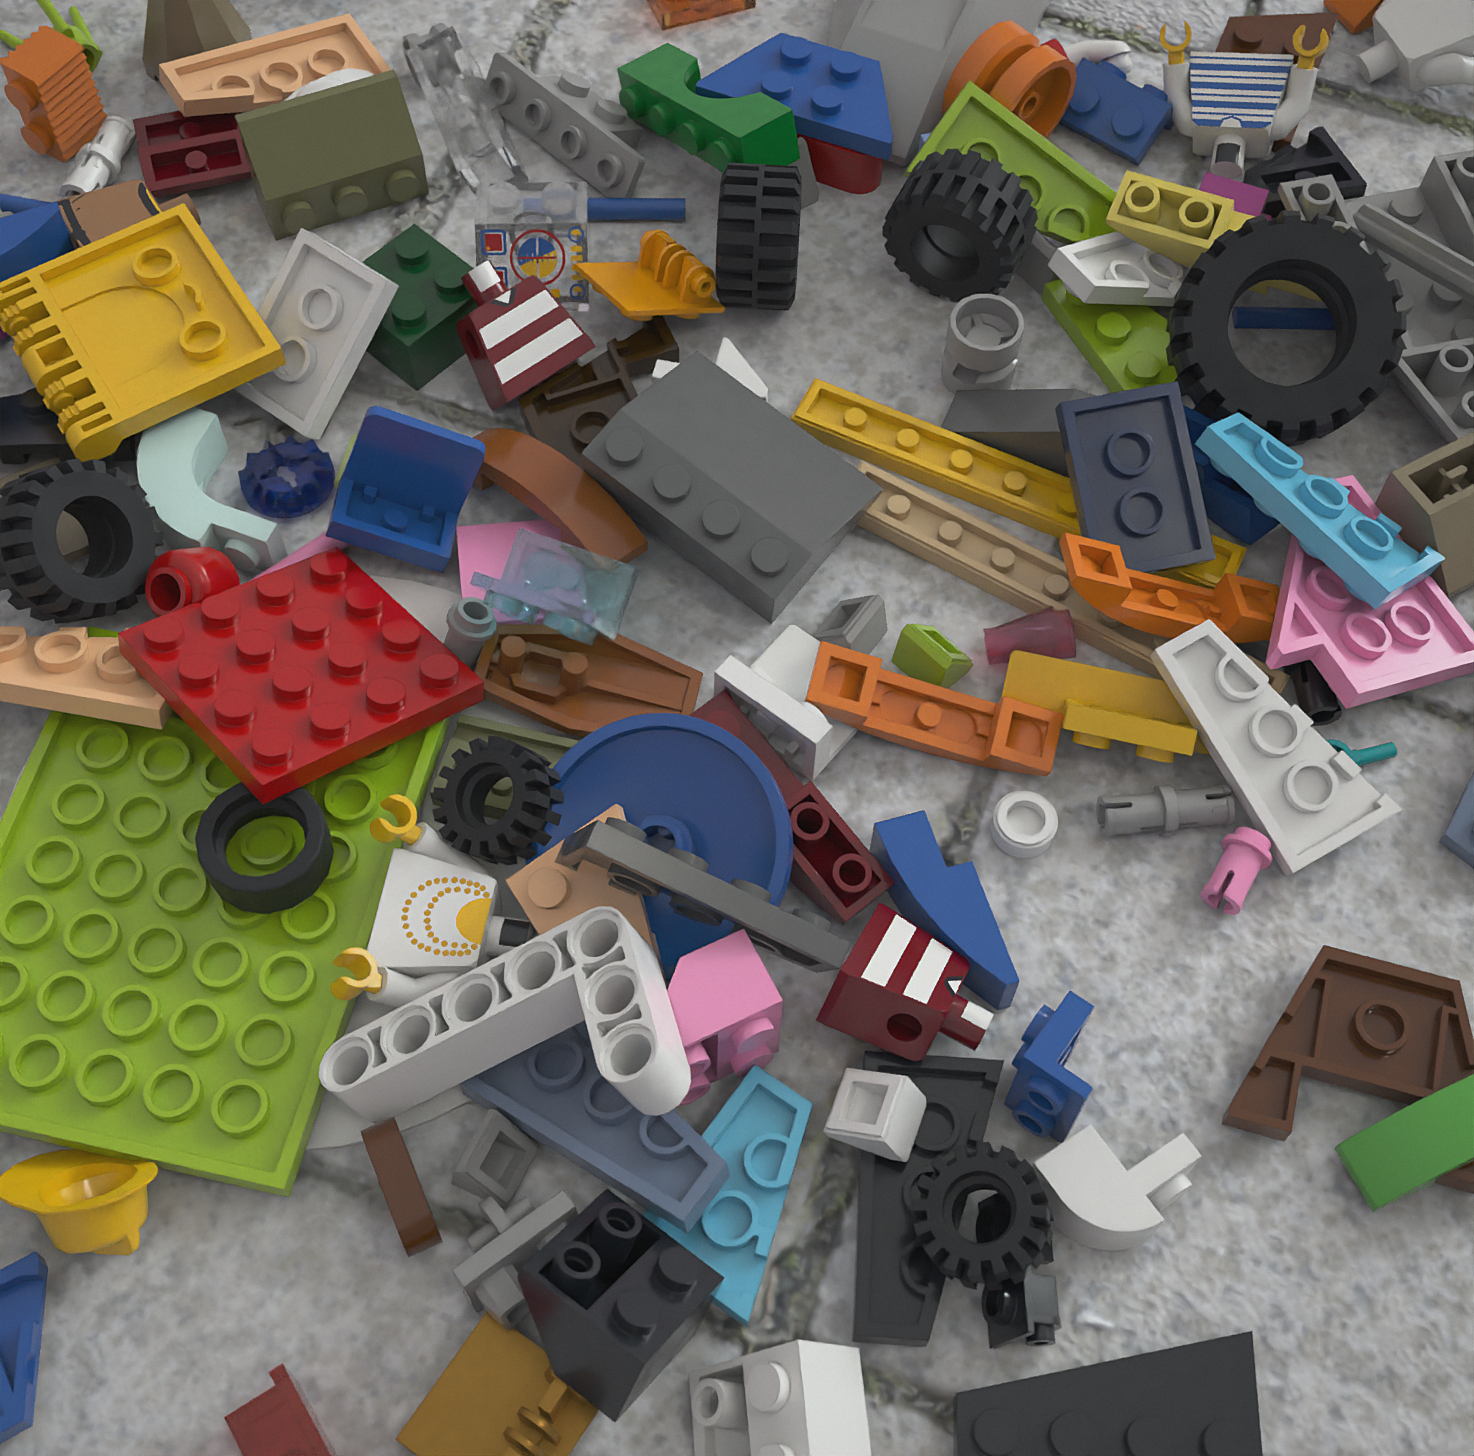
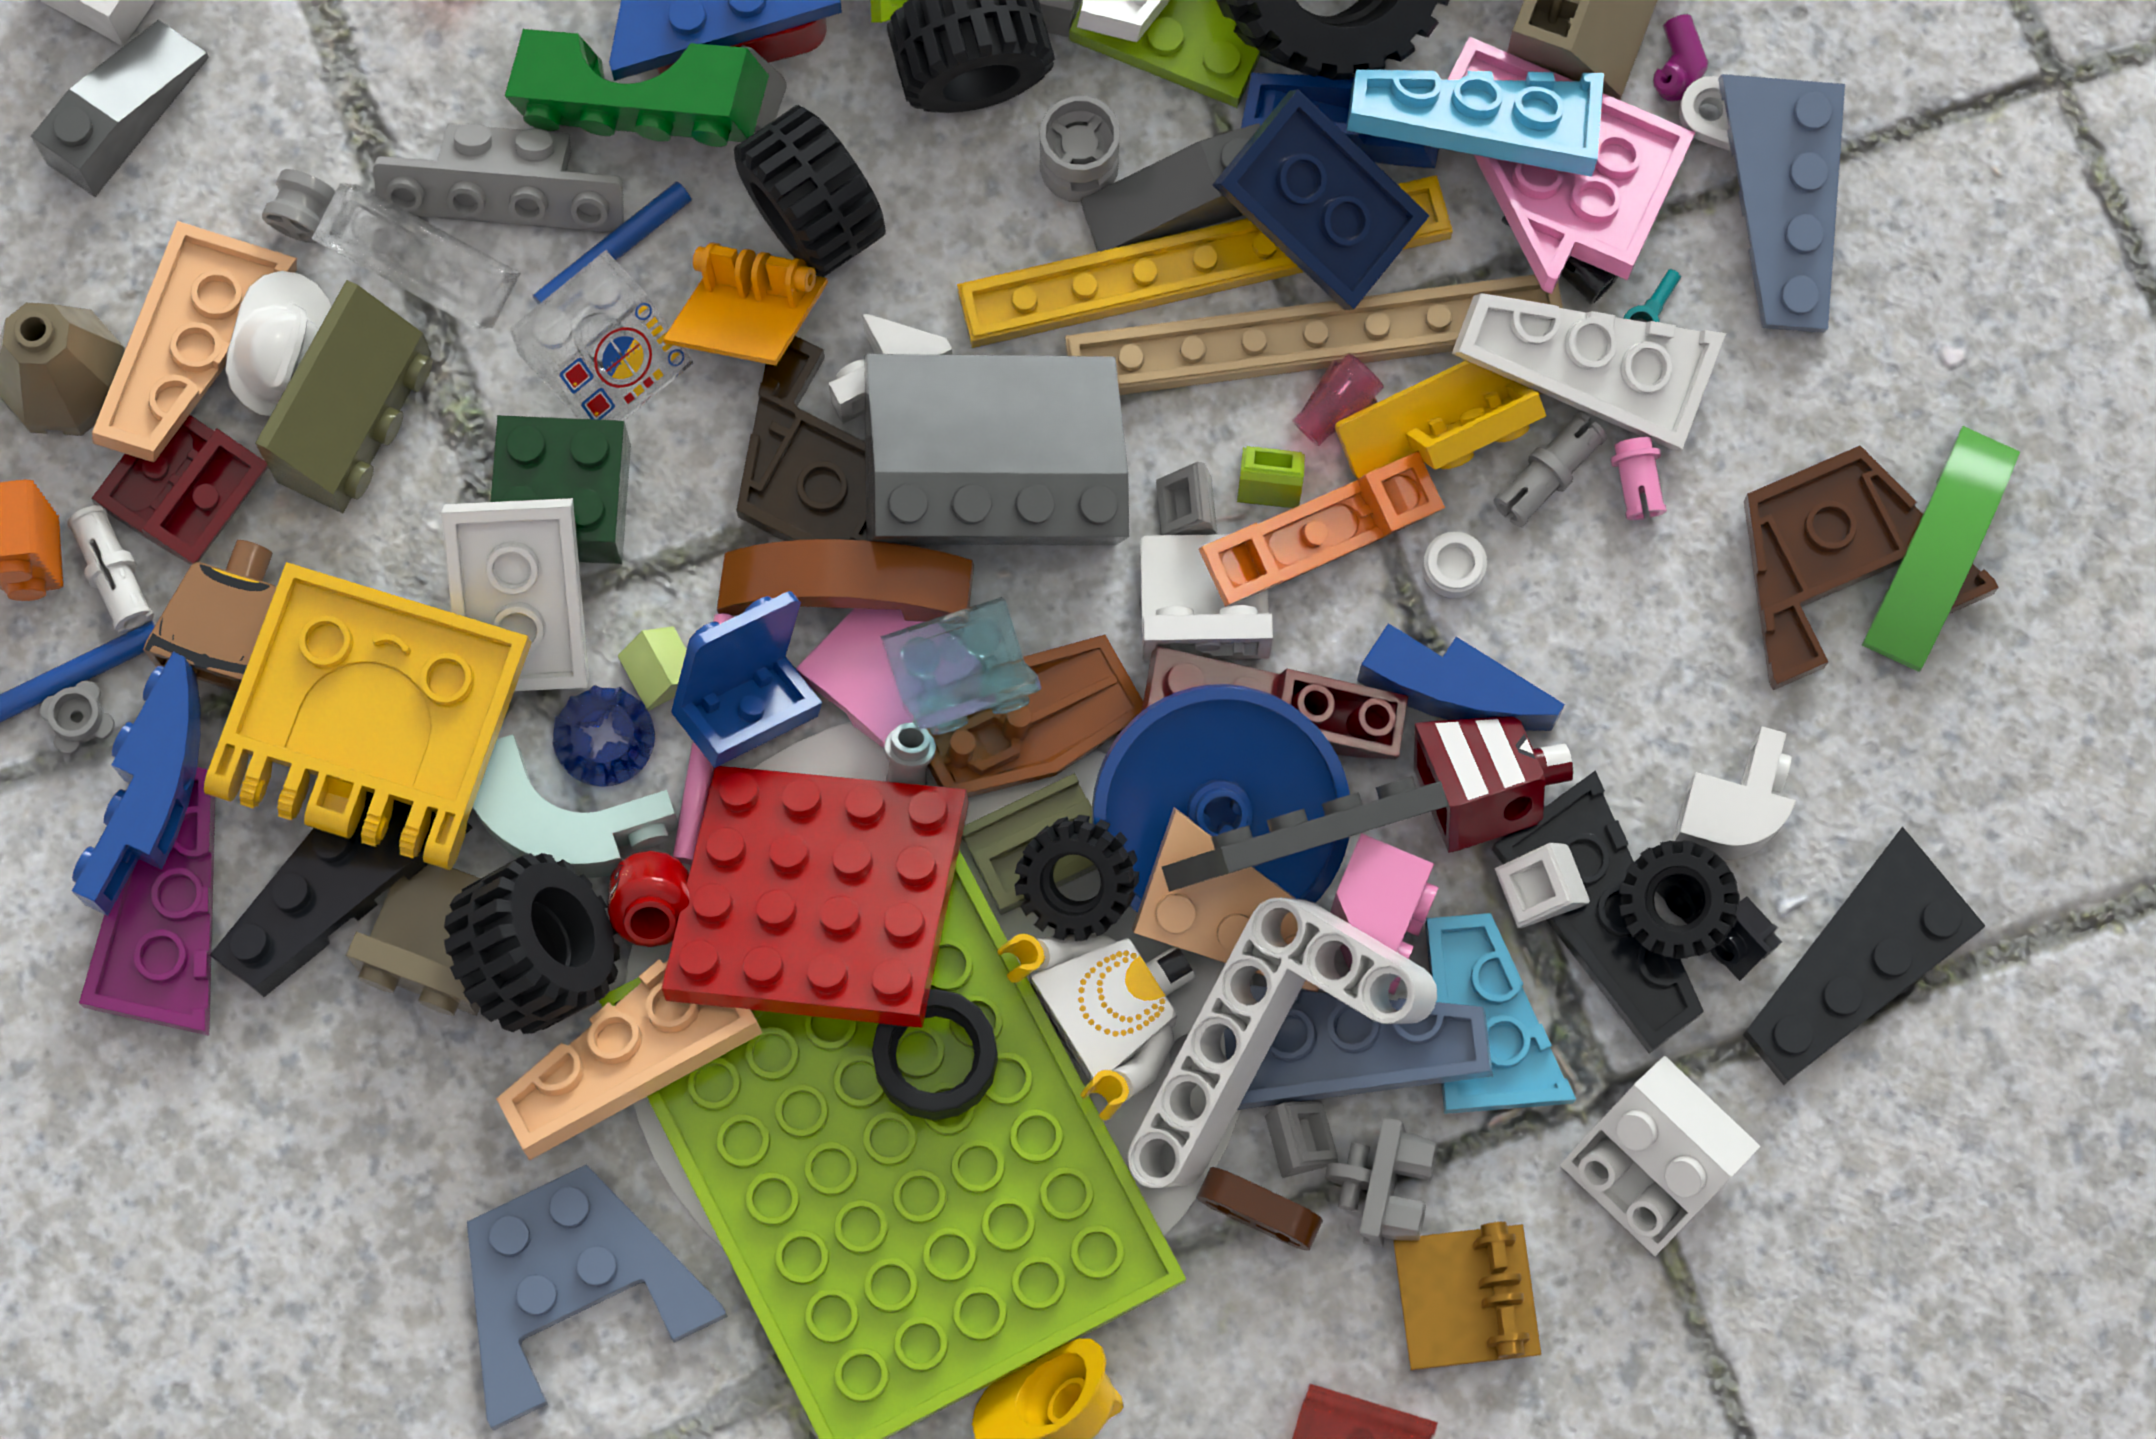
camera: 40 degrees left, 15 degrees up
(516, 334) = (687, 455): dark red torso -> none
(615, 1301) = (1490, 1158): black slope -> none
(1043, 1092) = (1628, 754): blue bracket -> none
(1164, 606) = (1428, 284): orange slope -> none

